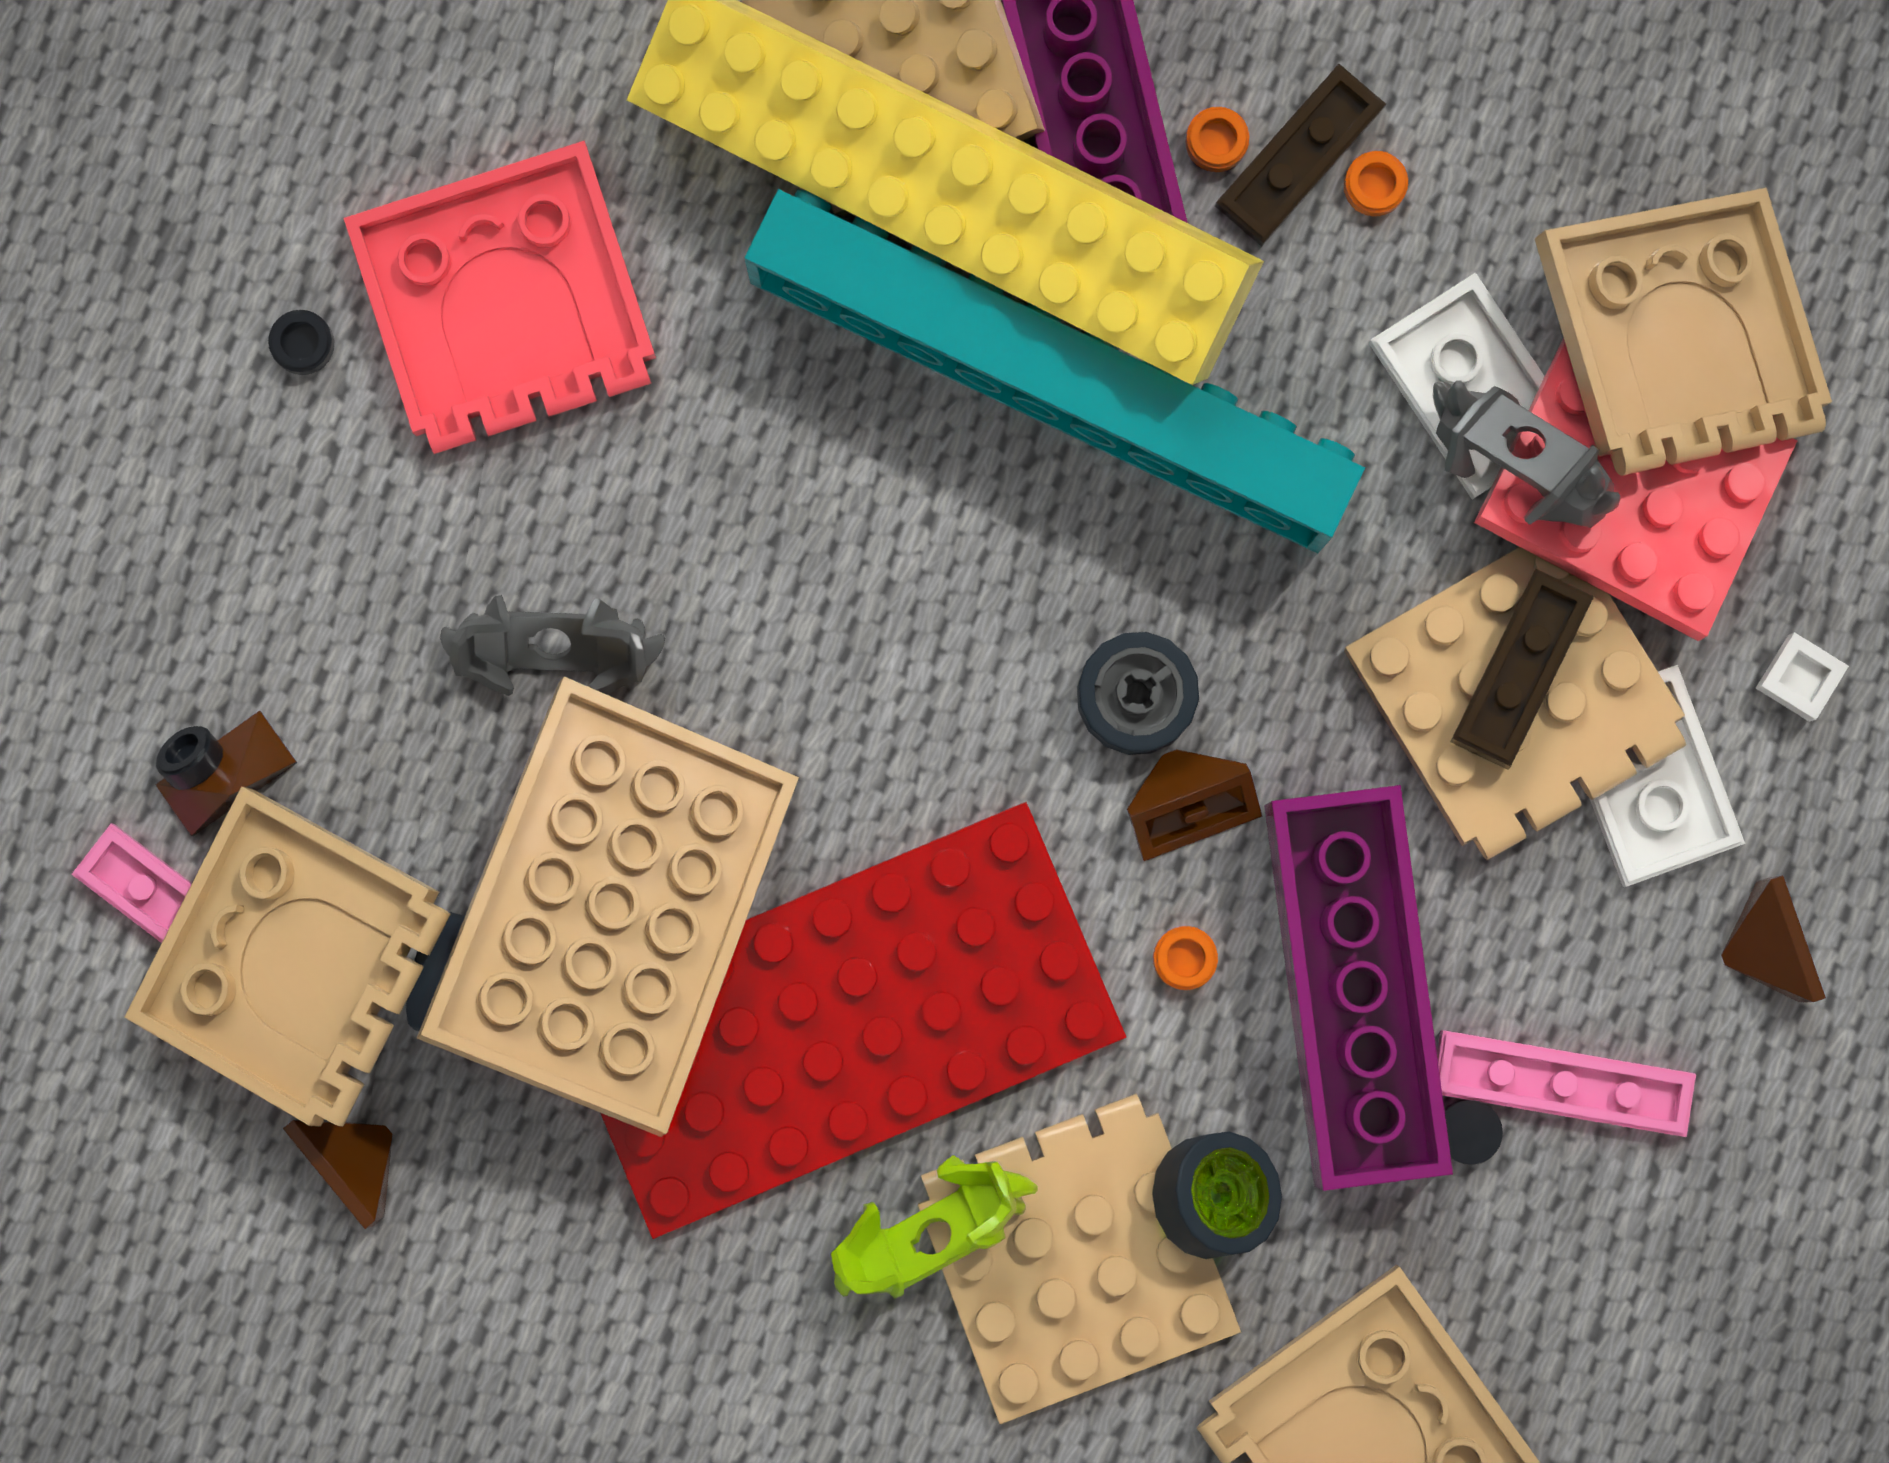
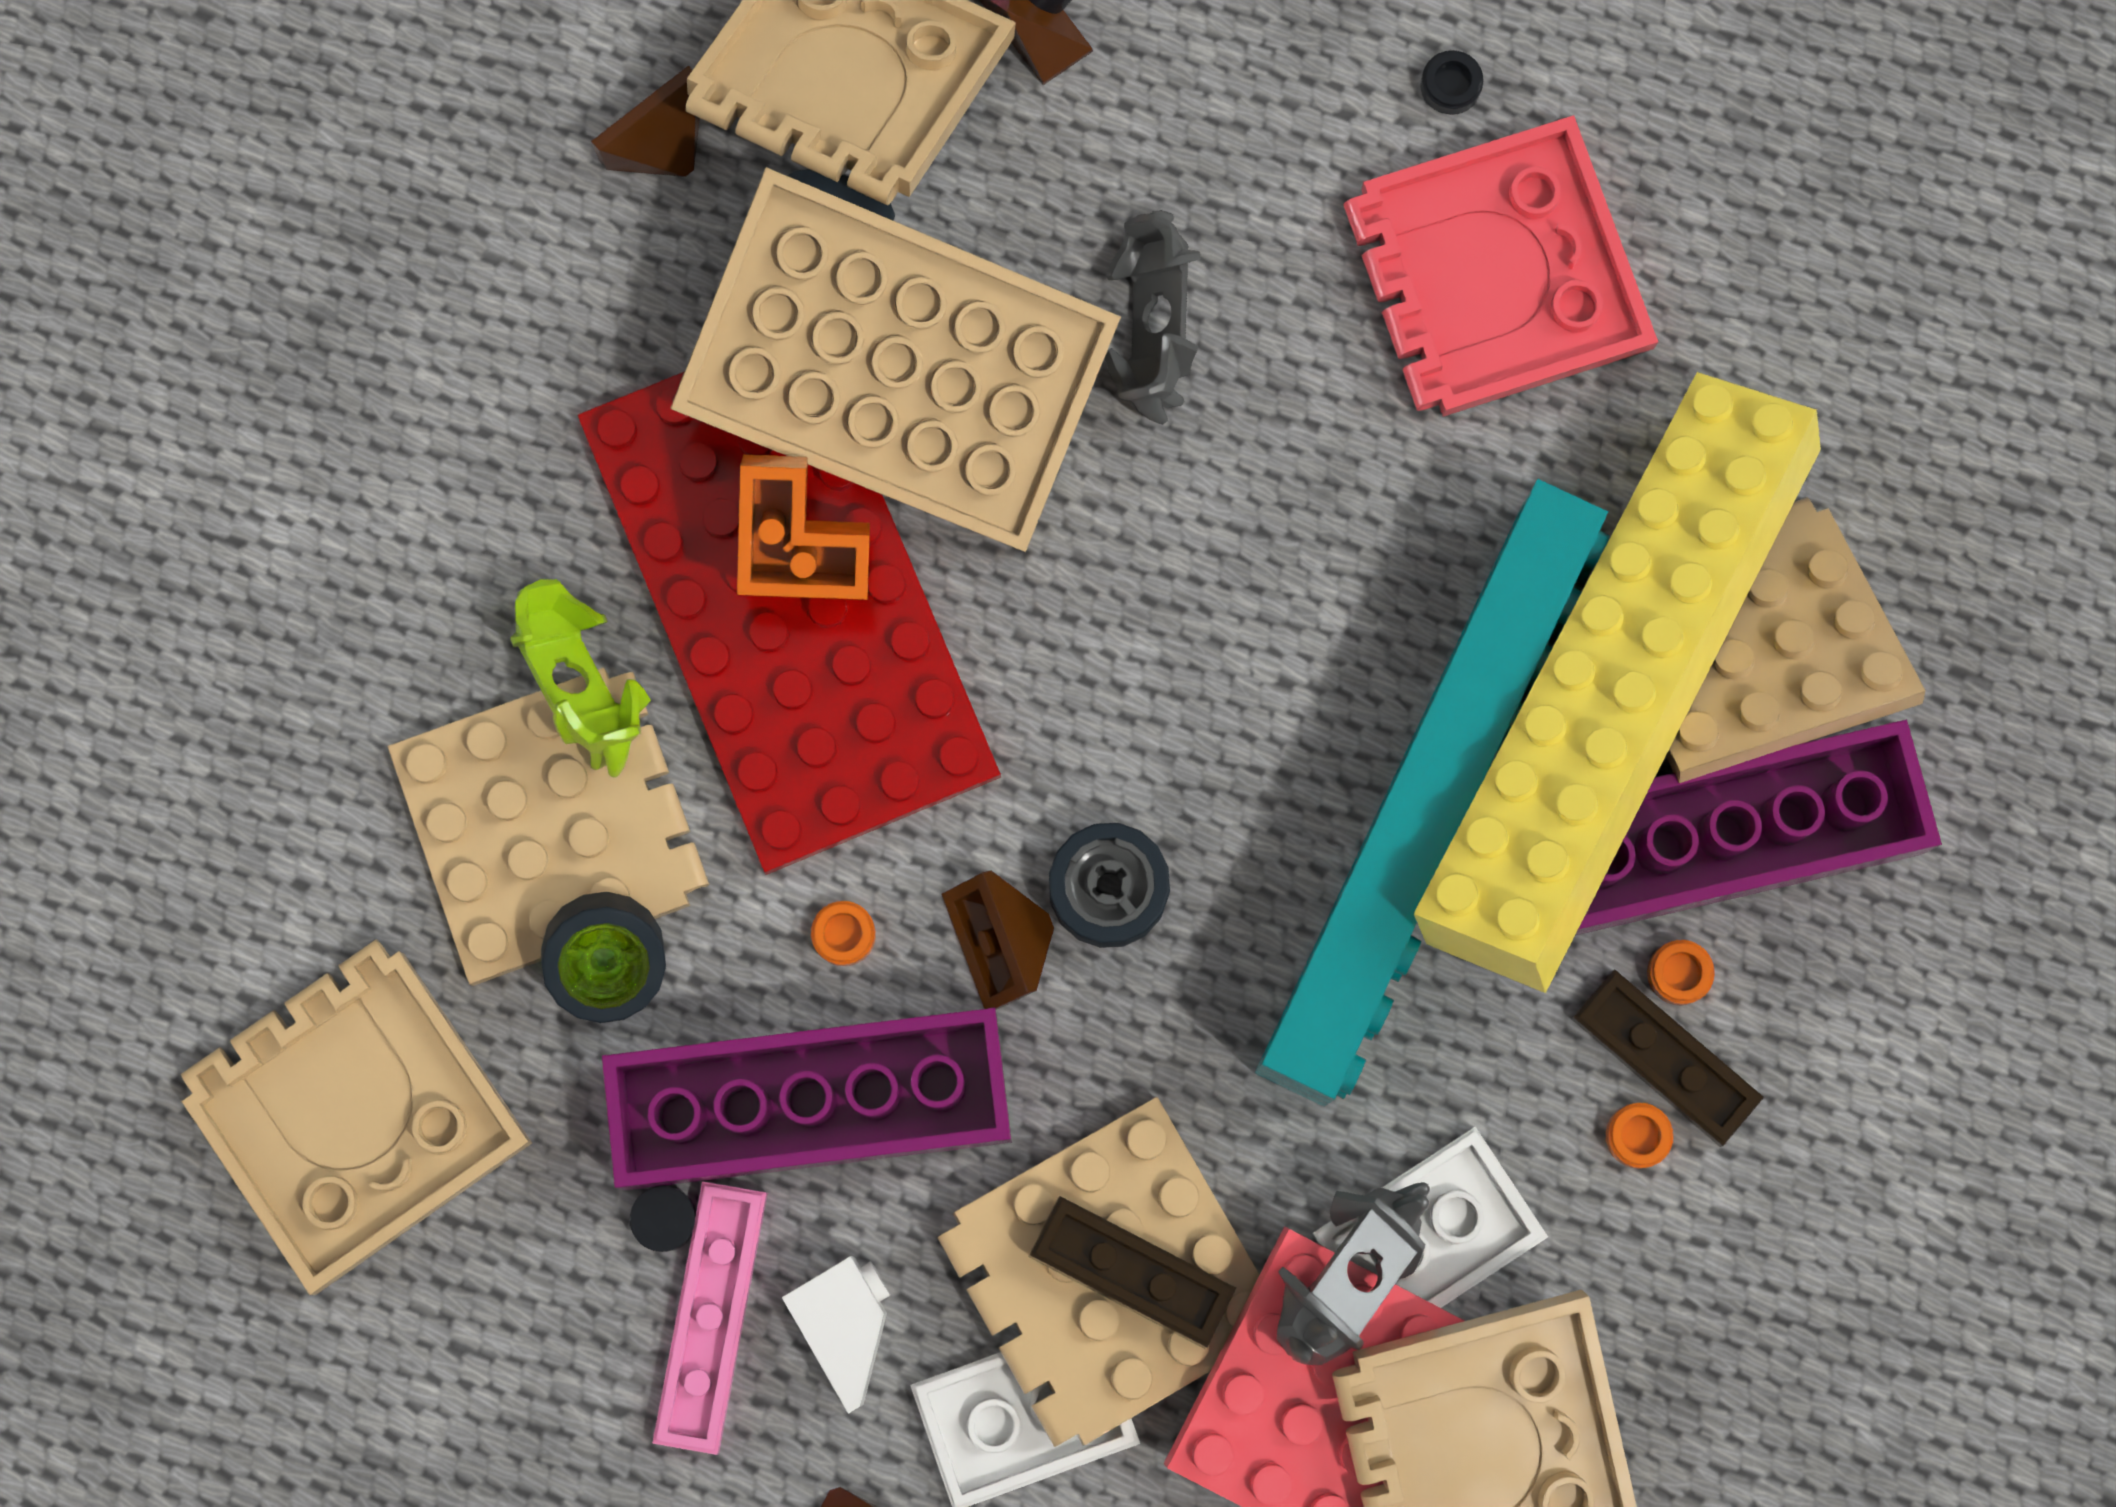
camera: 95 degrees right, 5 degrees down
(813, 1007) = (783, 550): none -> orange brick
(1571, 952) = (843, 1324): none -> white slope

